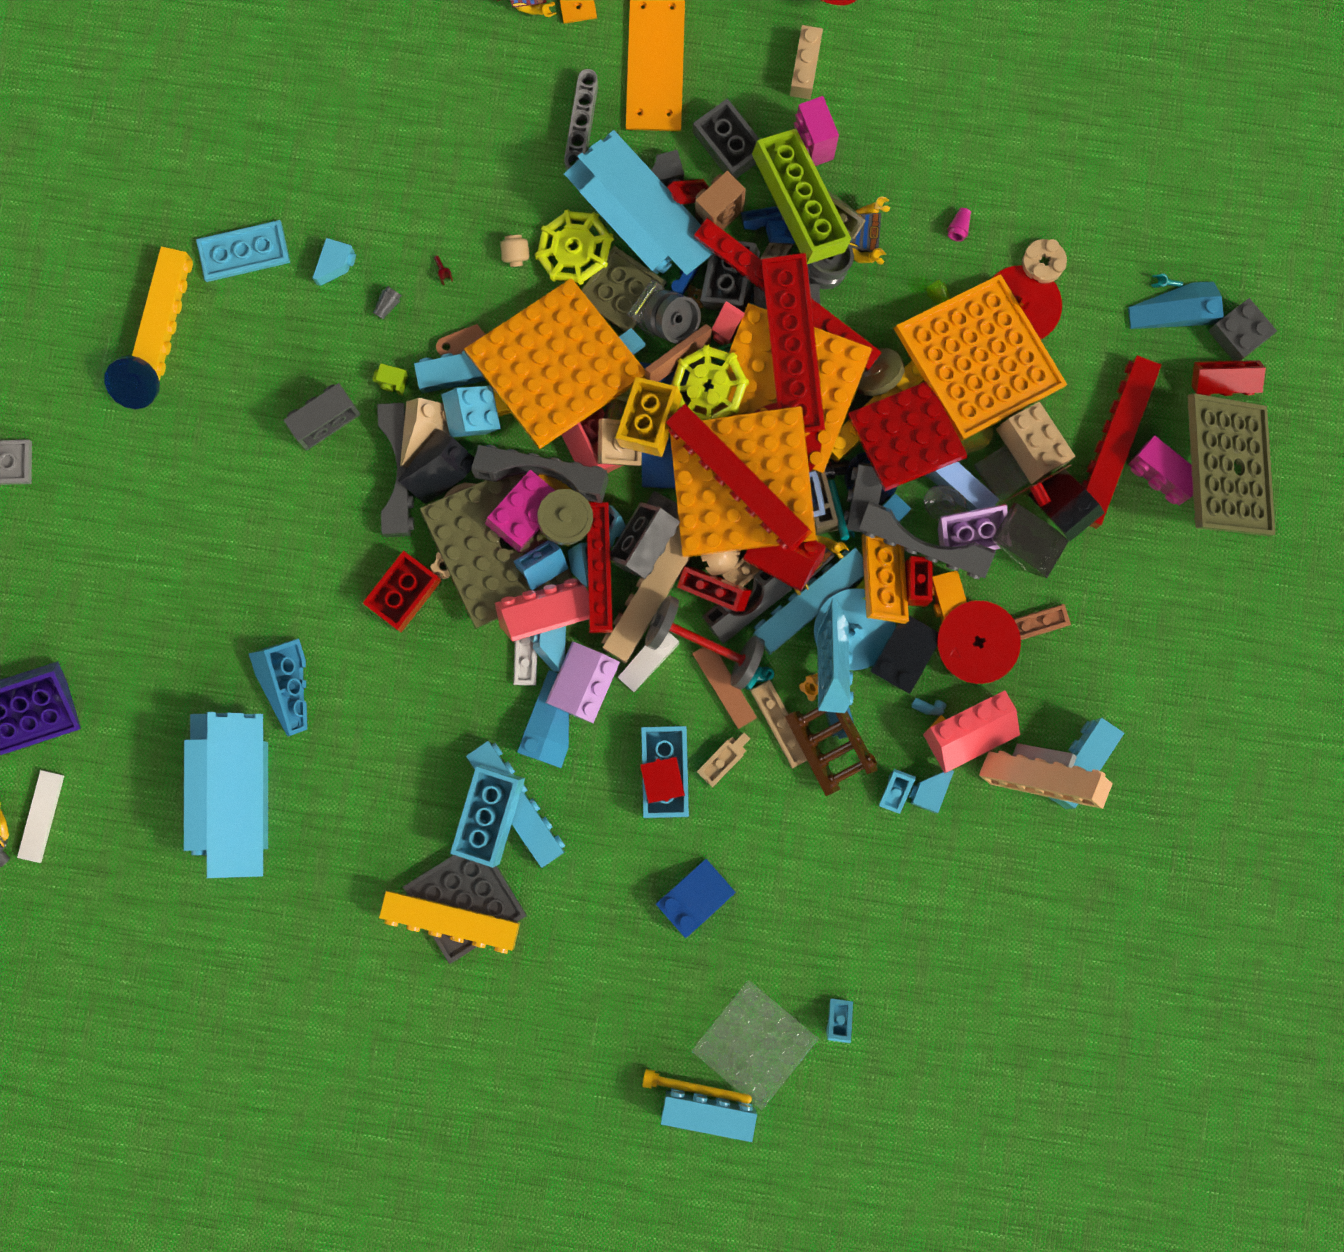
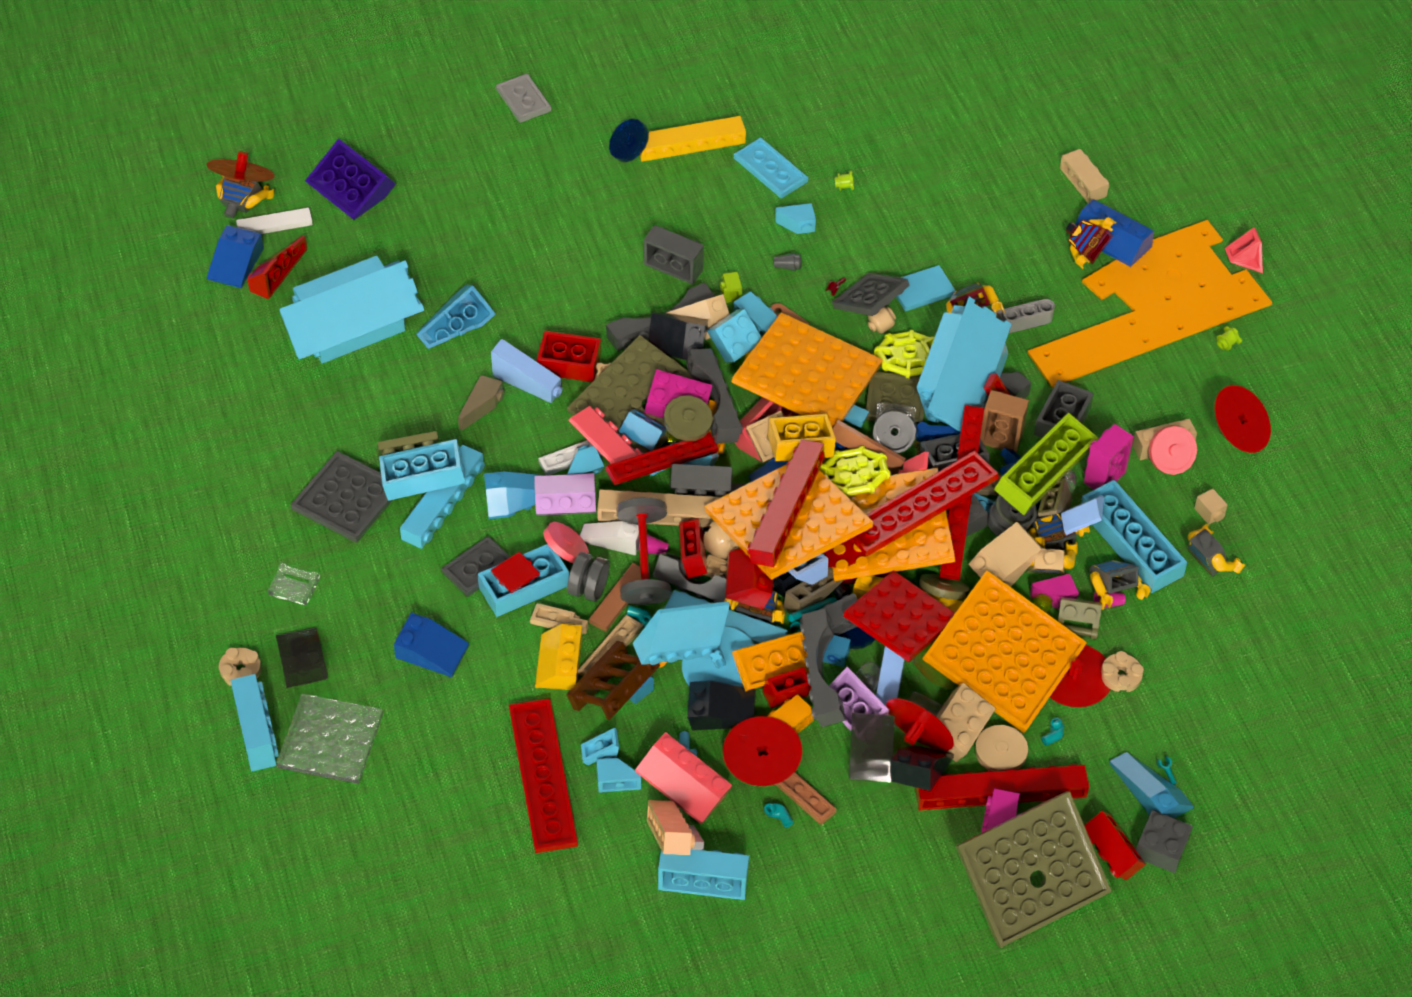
camera: 60 degrees right, 30 degrees down
(72, 881) = (235, 256): none -> blue slope
(117, 850) = (273, 271): none -> red wedge
(307, 185) = (844, 181): none -> lime brick
(401, 646) = (523, 372): none -> light blue slope
(409, 704) = (481, 401): none -> dark tan slope
(442, 815) = (406, 443): none -> olive plate
(450, 921) = (326, 487): yellow brick -> none
(481, 243) = (870, 294): none -> dark grey plate
(490, 186) = (925, 288): none -> medium azure tile
(541, 149) = (982, 295): none -> torso
(552, 1006) = (292, 589): none -> clear plate
(610, 1099) = (239, 656): none -> tan plate
(617, 807) = (465, 568): none -> dark grey tile
(640, 1031) = (301, 657): none -> clear smoke slope
(642, 710) = (564, 541): none -> coral wheel
(653, 1079) = (265, 676): yellow piece -> none
(684, 620) = (655, 545): none -> dark pink cone
(700, 705) = (588, 577): none -> dark grey wheel
(771, 780) = (559, 657): none -> yellow slope
(828, 63) = (1172, 450): none -> coral wheel
(840, 1021) = (380, 787): medium azure slope -> none
(872, 194) = (1083, 515): none -> light blue slope
(879, 295) = (1007, 555): none -> tan slope
(896, 858) = (543, 776): none -> red plate
(899, 257) = (1055, 561): none -> tan torso
(905, 67) = (1211, 506): none -> tan brick
(906, 160) = (1136, 538): none -> medium azure brick
(931, 267) = (1055, 588): none -> dark pink slope
(947, 209) = (1114, 577): none -> torso
(957, 102) = (1210, 552): none -> torso
(969, 261) = (1080, 611): none -> olive plate
(1040, 658) = (780, 812): none -> teal arm
(1076, 417) = (1001, 748): none -> tan wheel
(1080, 359) = (1056, 732): none -> teal arm

